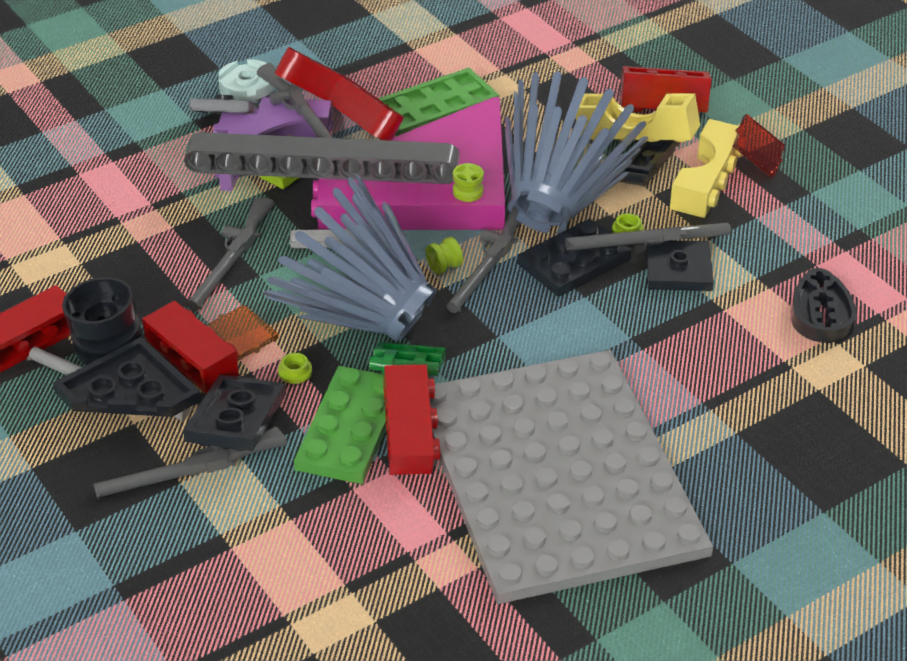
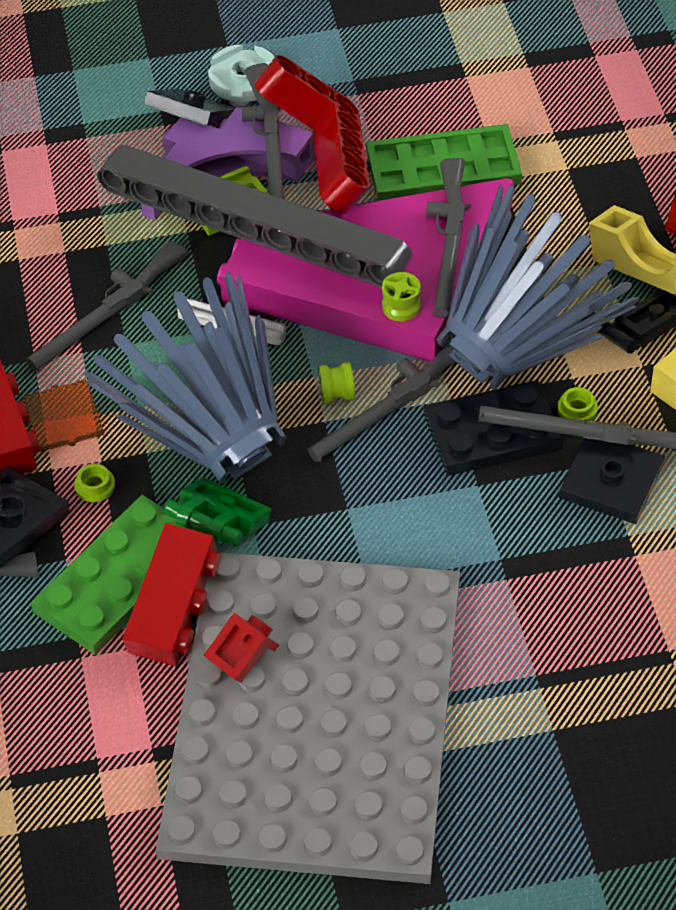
camera: 25 degrees right, 10 degrees up
(473, 125) = (453, 210): none -> dark grey piece
(486, 434) = (240, 645): none -> red bracket

